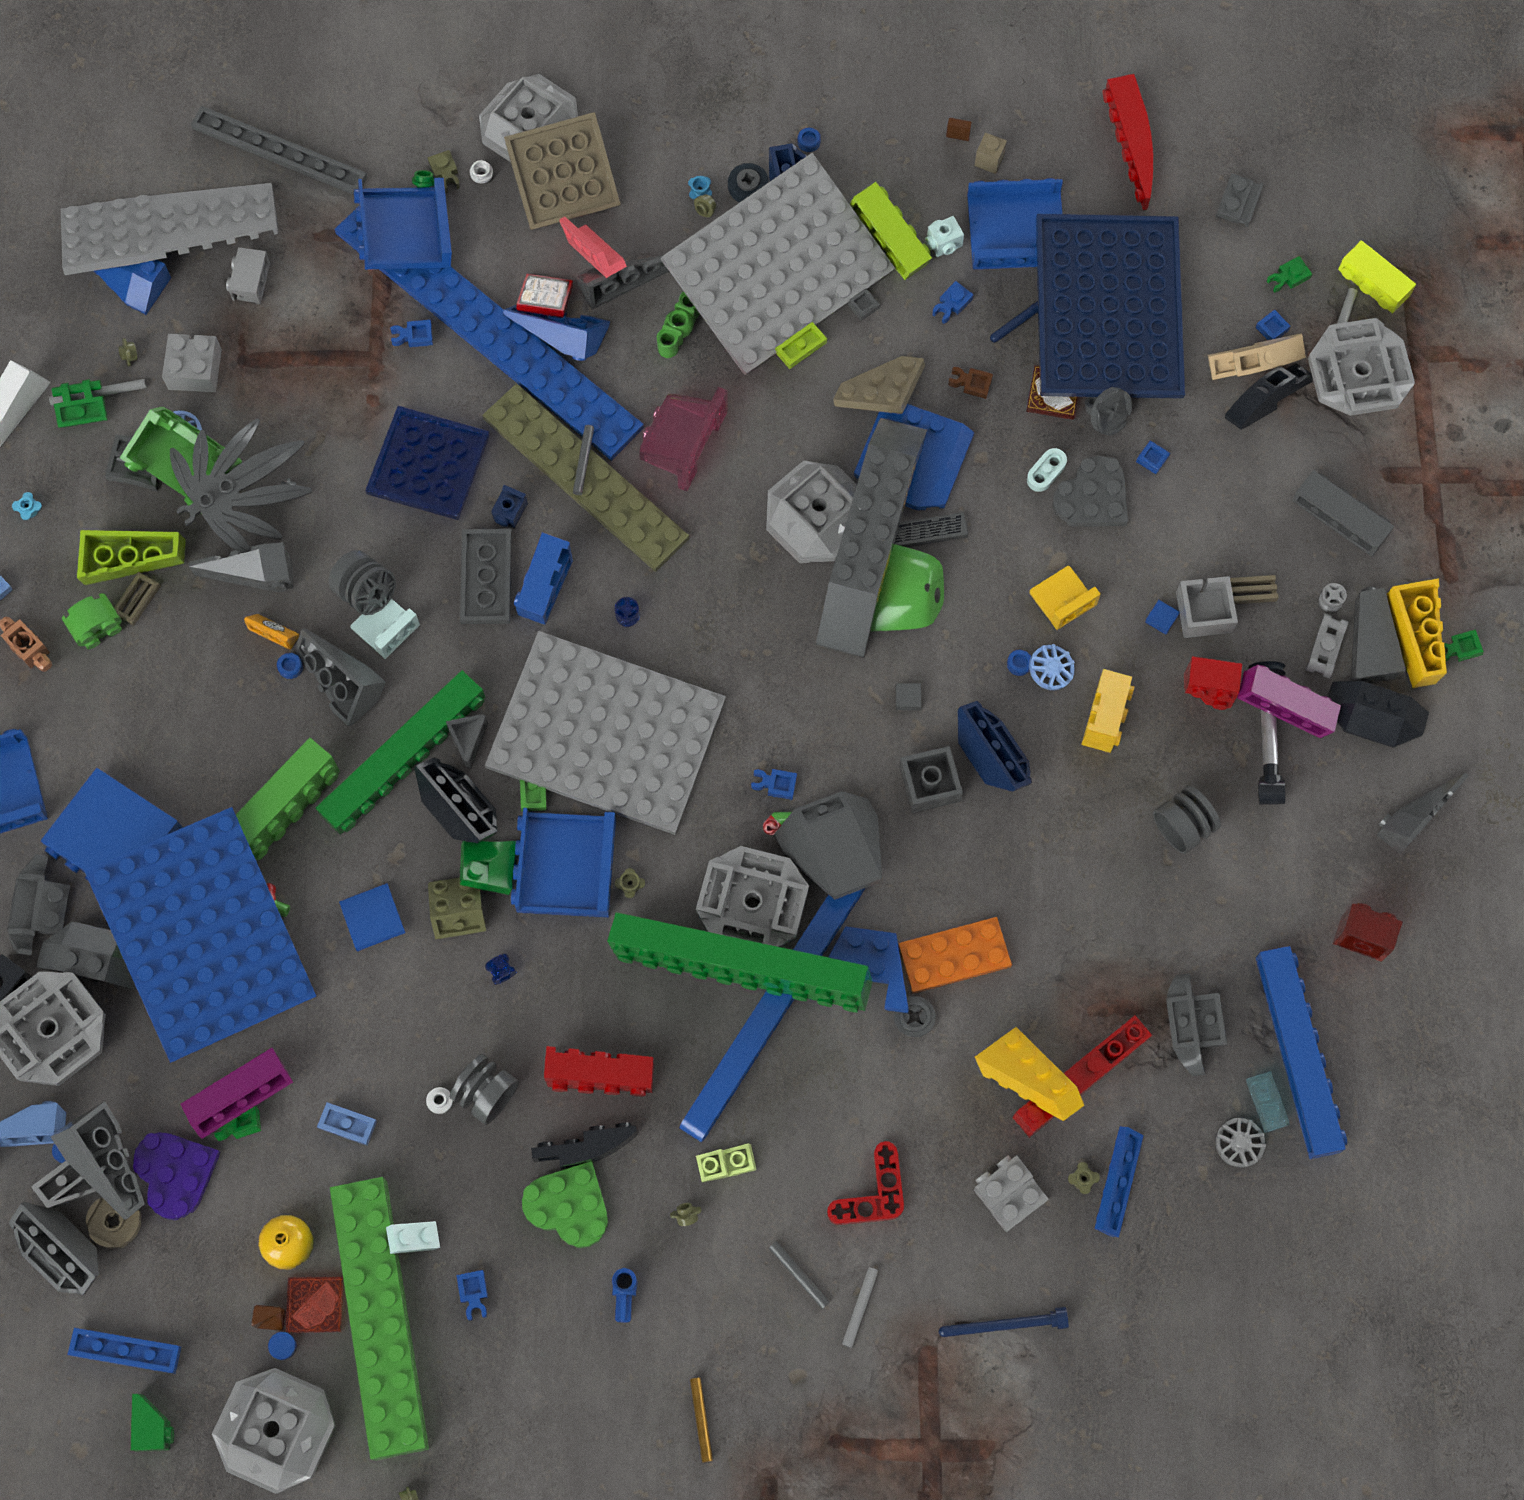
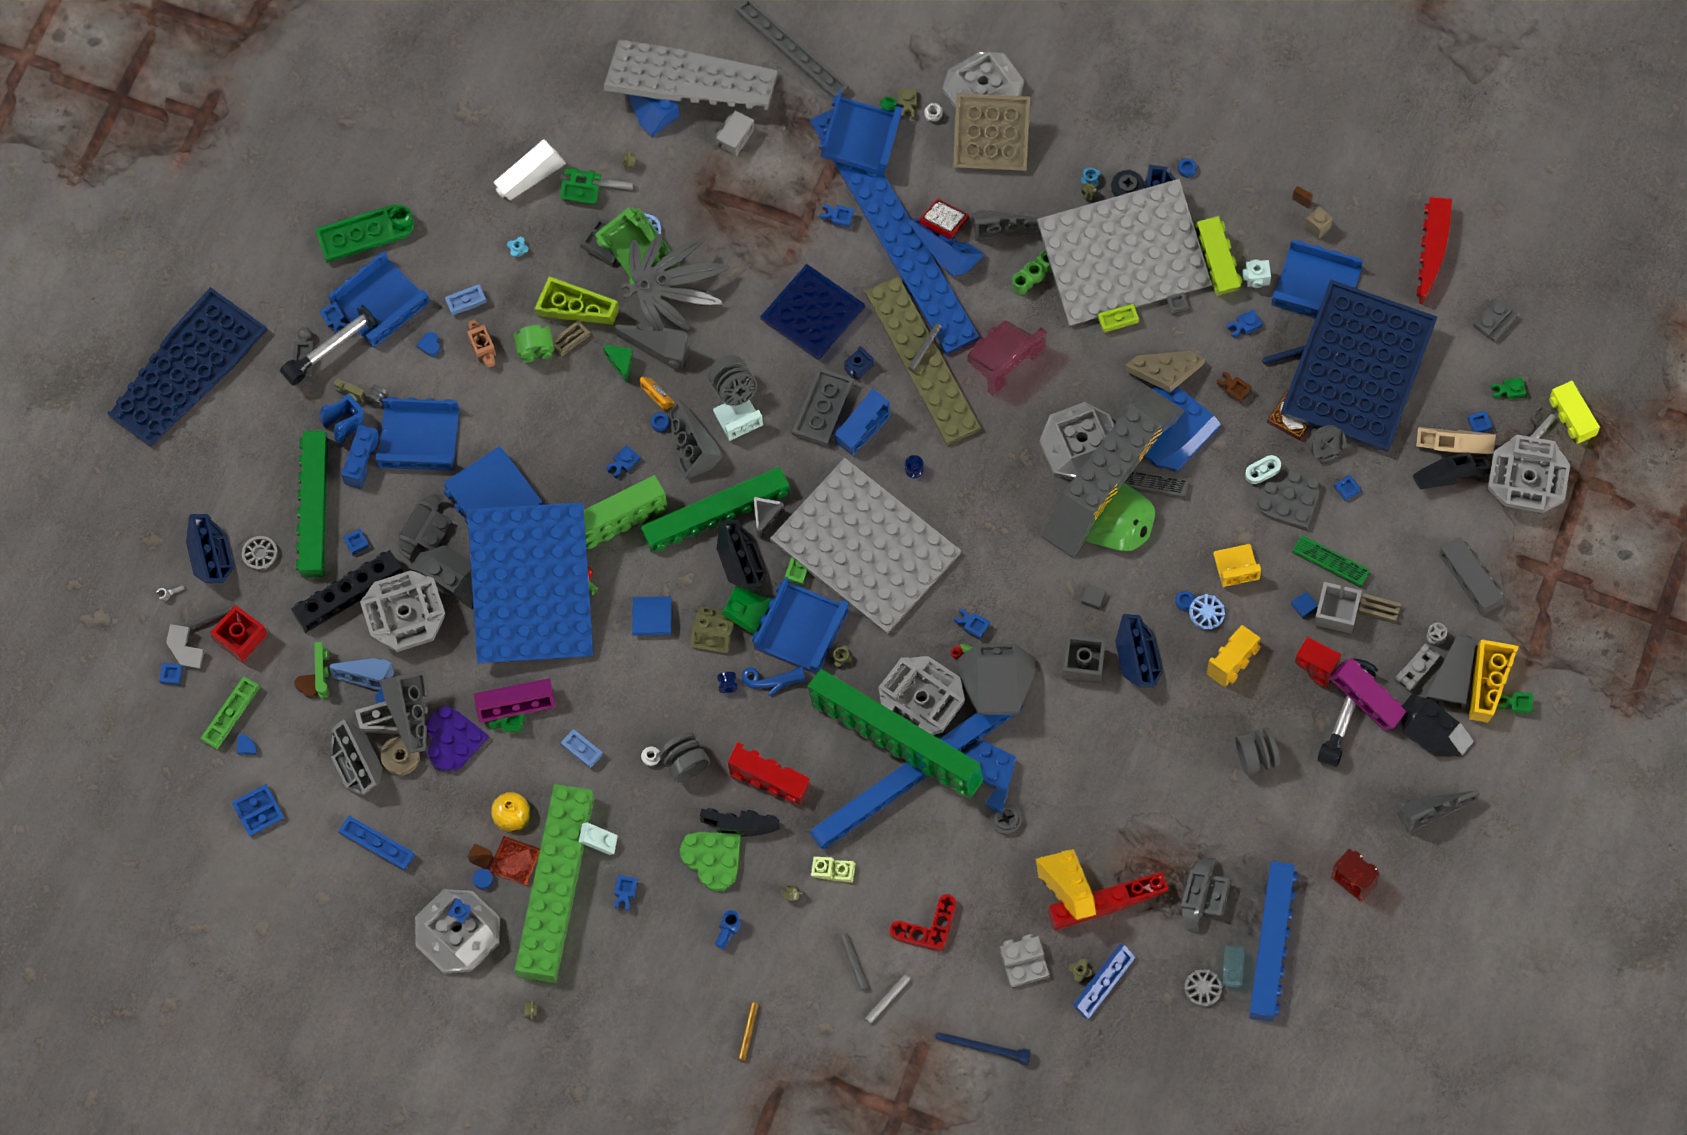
camera: 25 degrees right, 5 degrees down
(149, 1427) = (374, 899): green slope -> none
(191, 363) = (671, 183): light grey piece -> none
(210, 603) = (620, 358): none -> green slope
(262, 728) = (625, 460): none -> blue plate
(276, 1405) = (465, 909): none -> blue plate
(563, 944) = (778, 682): none -> blue plant
(593, 248) = (991, 196): coral fence -> none
(954, 955) = (1052, 787): orange plate -> none
(1171, 553) = (1331, 561): none -> green tile

